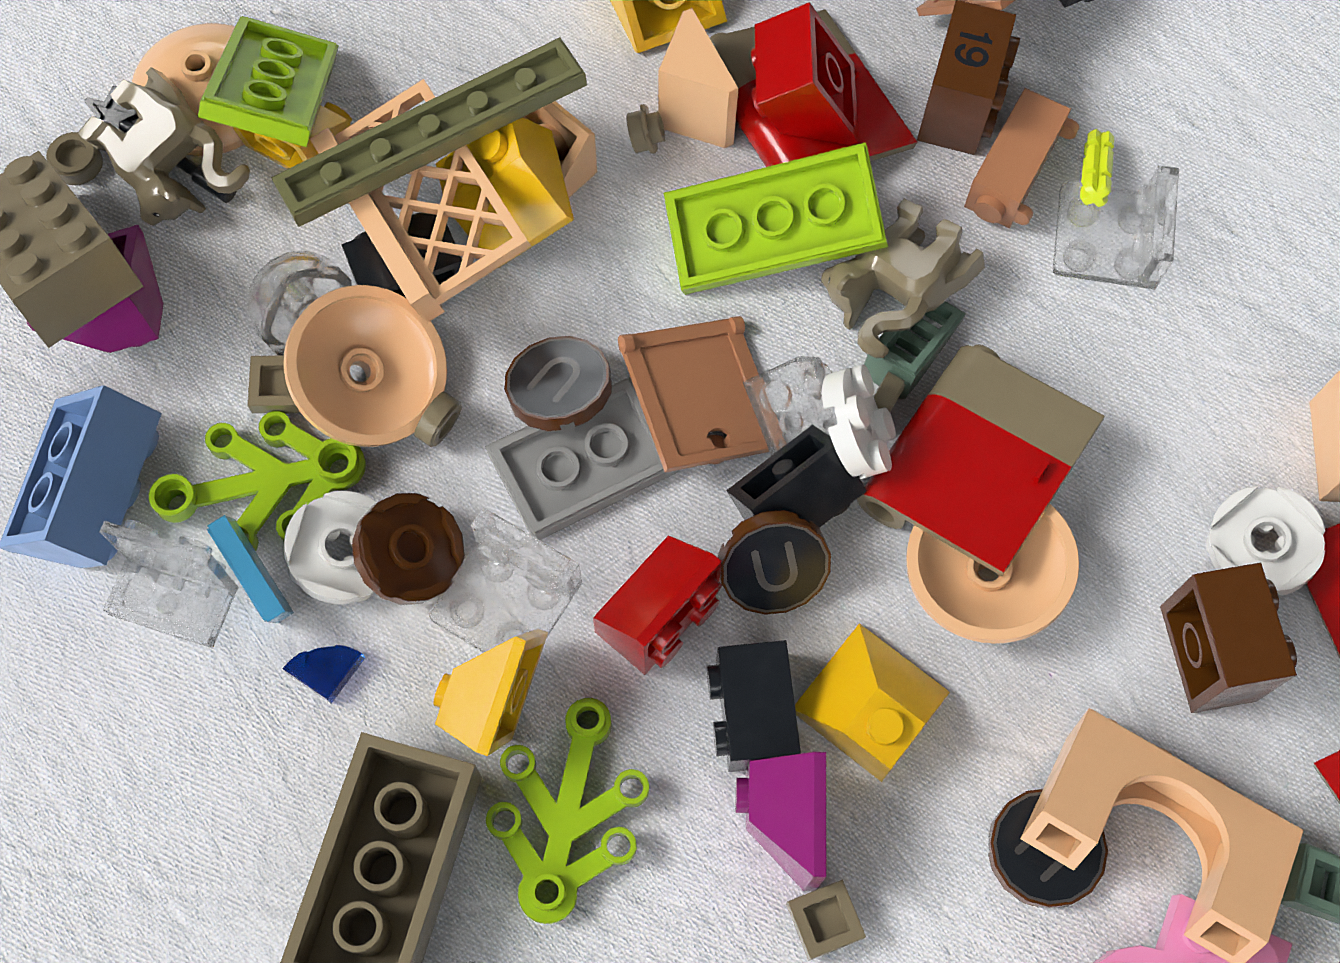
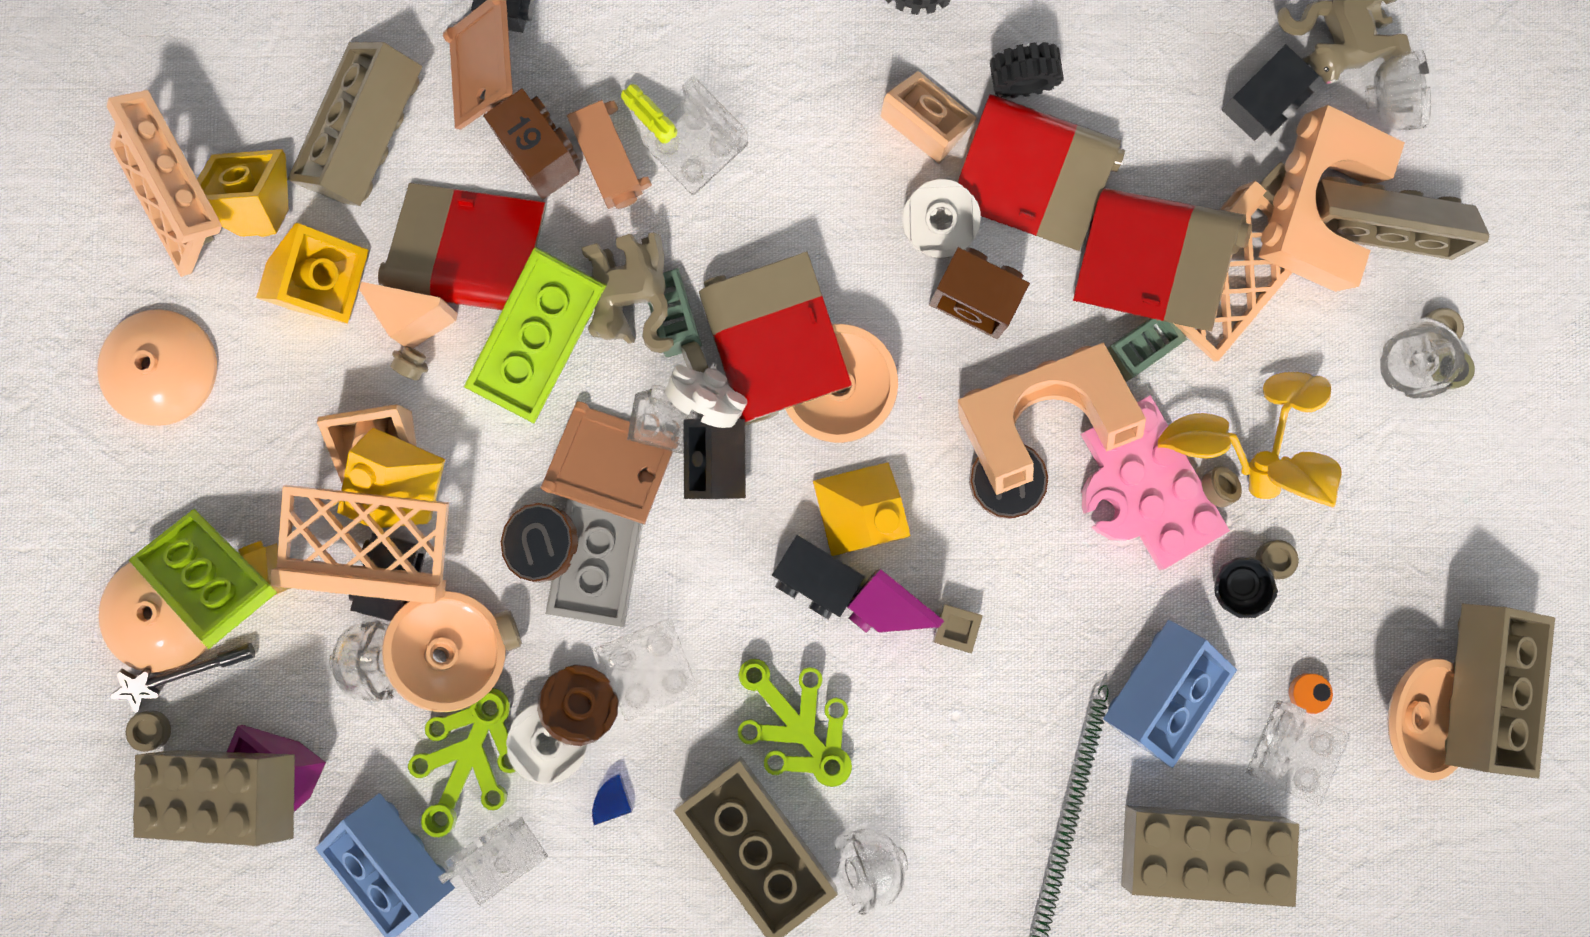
camera: 55 degrees left, 15 degrees up
(156, 144) = (185, 675): dark tan animal -> none
(249, 569) = (522, 806): dark azure tile -> none
(268, 386) = (406, 715): dark tan plate -> none
(429, 131) = (326, 510): olive tile -> none
(487, 693) = (700, 723): yellow slope -> none
(660, 603) = (719, 586): red slope -> none
(774, 562) = (747, 505): black tile -> none
(804, 78) = (458, 245): red slope -> none

